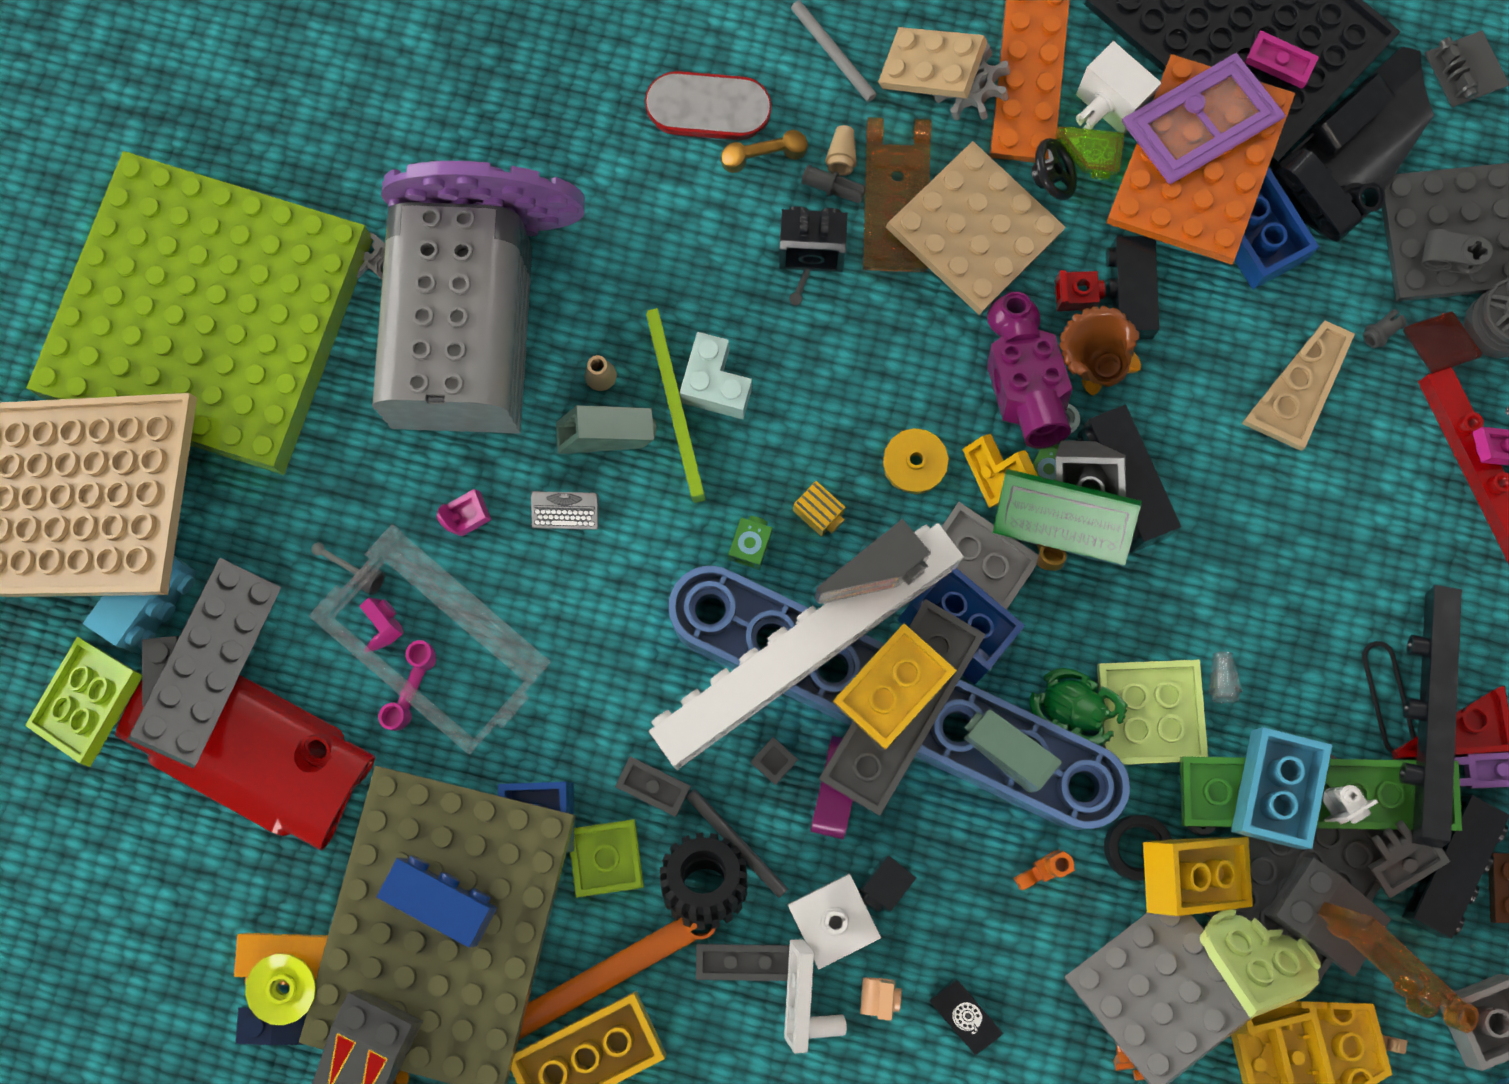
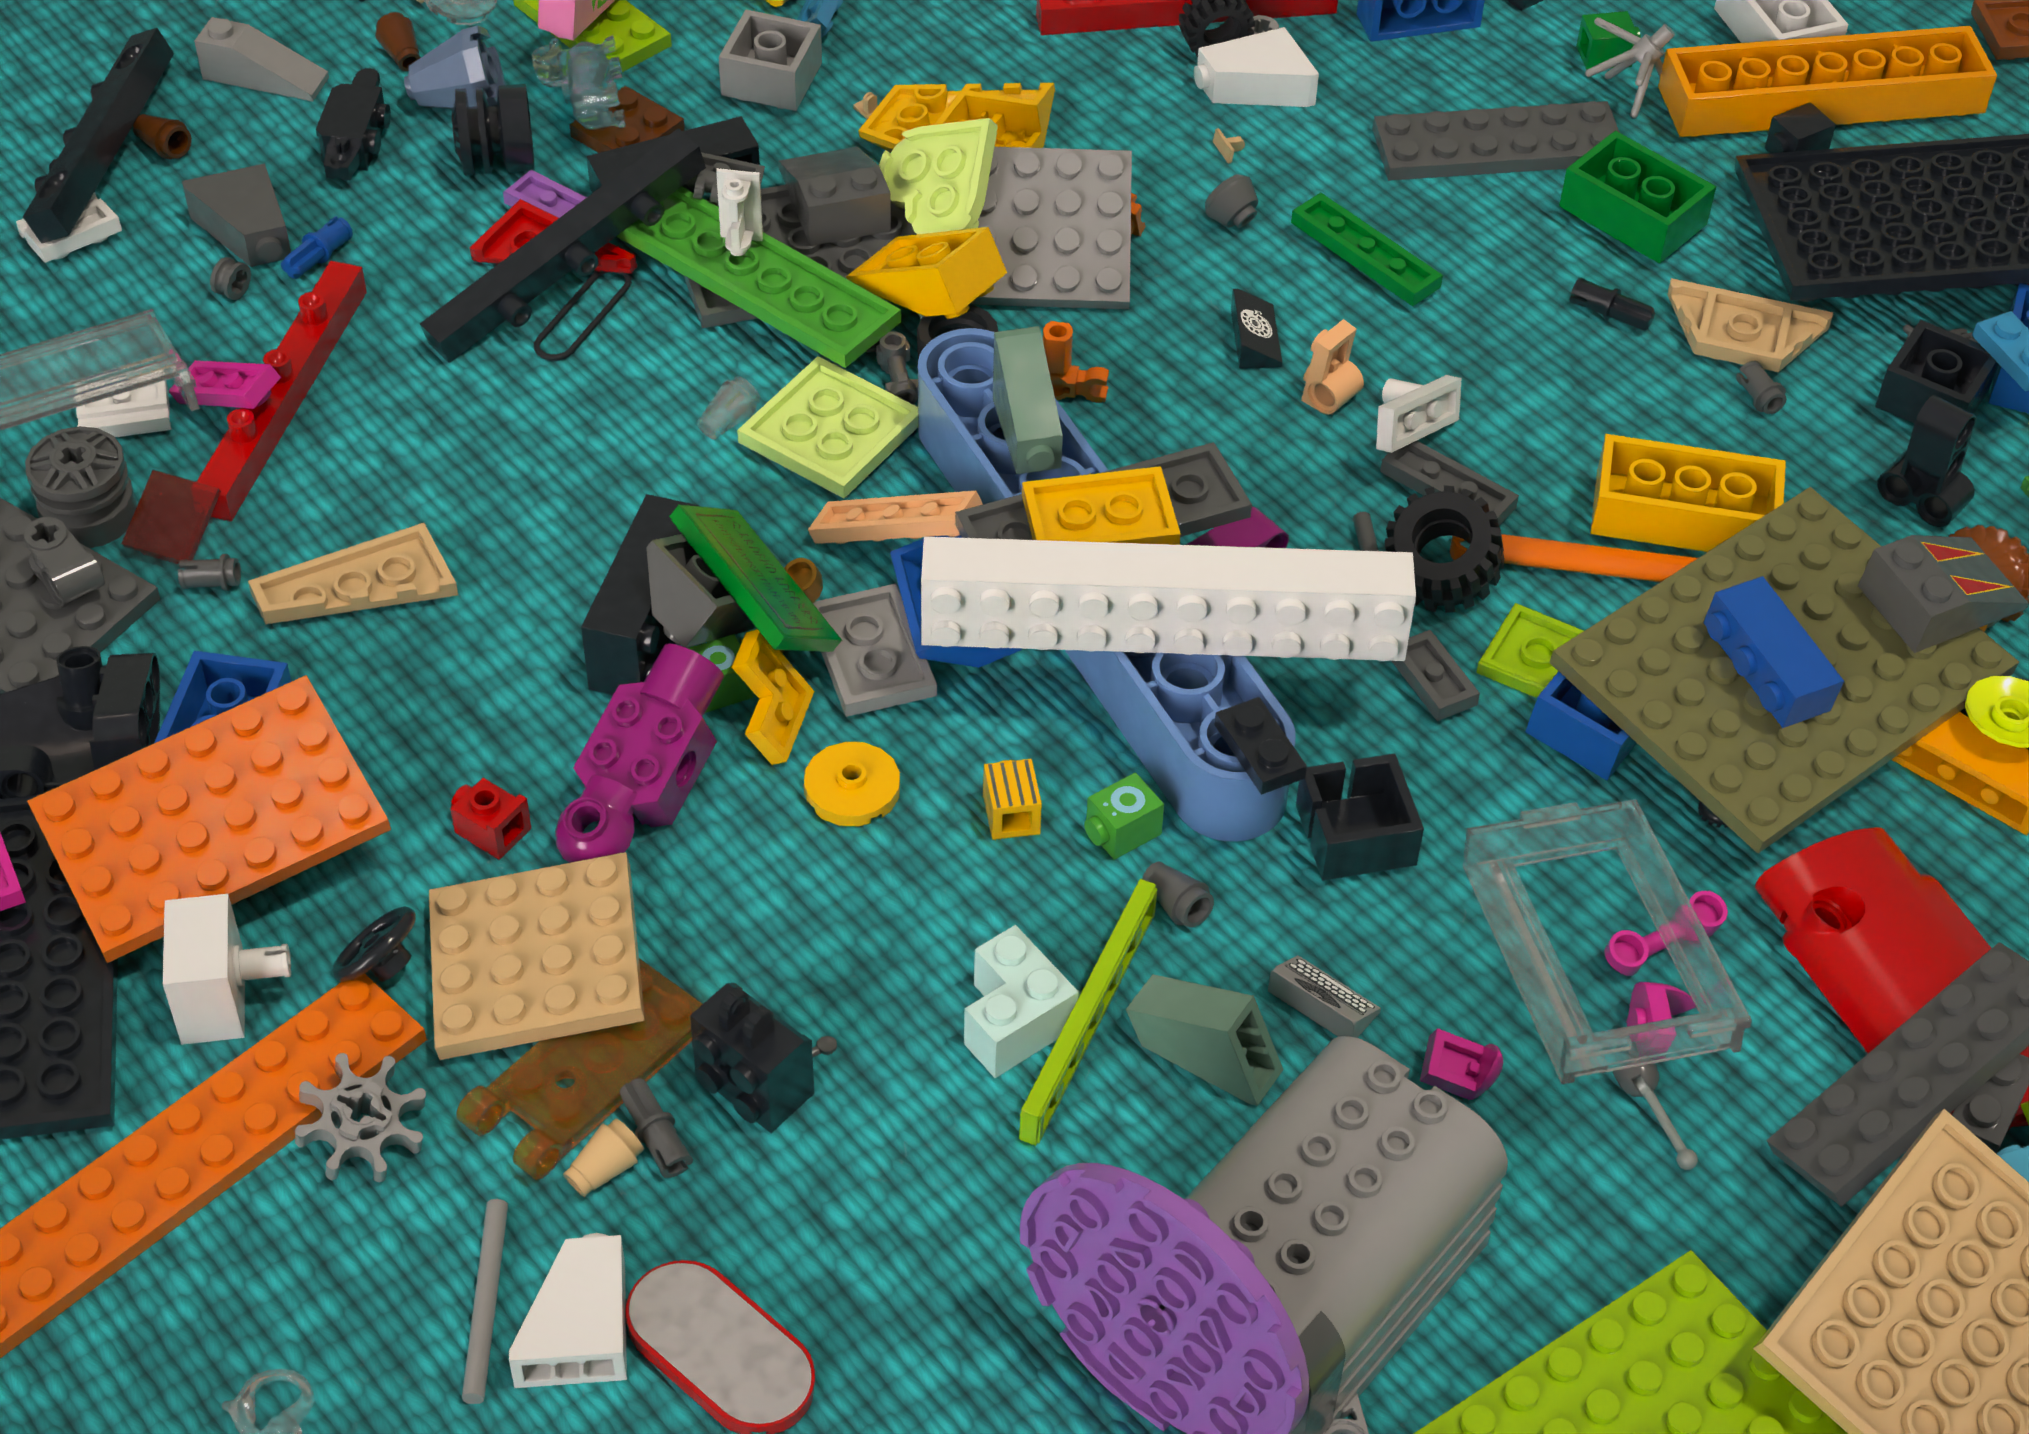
camera: 145 degrees left, 30 degrees down
(601, 379) = (1156, 1105): tan cone -> none
(617, 632) = (1369, 829): none -> black piece
(685, 515) = (1181, 896): none -> dark grey cone
(687, 601) = (1260, 745): none -> black plate
(734, 155) = (747, 1248): pearl gold bar -> none
(779, 66) = (576, 1319): none -> white slope
(834, 921) = (1328, 456): white brick -> none
(881, 566) = (1045, 546): dark grey slope -> none
(886, 885) = (1250, 436): black brick -> none
(933, 62) = (385, 1166): tan plate -> none
(1038, 645) = (891, 517): none -> light nougat plate
(1077, 704) = (903, 456): green shield -> none
(1093, 150) = (311, 930): clear neon green slope -> none
(1100, 347) = (539, 721): dark orange hair -> none
(1134, 282) = (429, 770): black brick -> none
(1166, 805) = (892, 357): none -> flat silver bar
(1203, 118) = (163, 836): medium lavender door -> none
(1281, 788) = (784, 259): medium azure brick -> none
(1402, 967) = (820, 103): clear orange hinge -> none

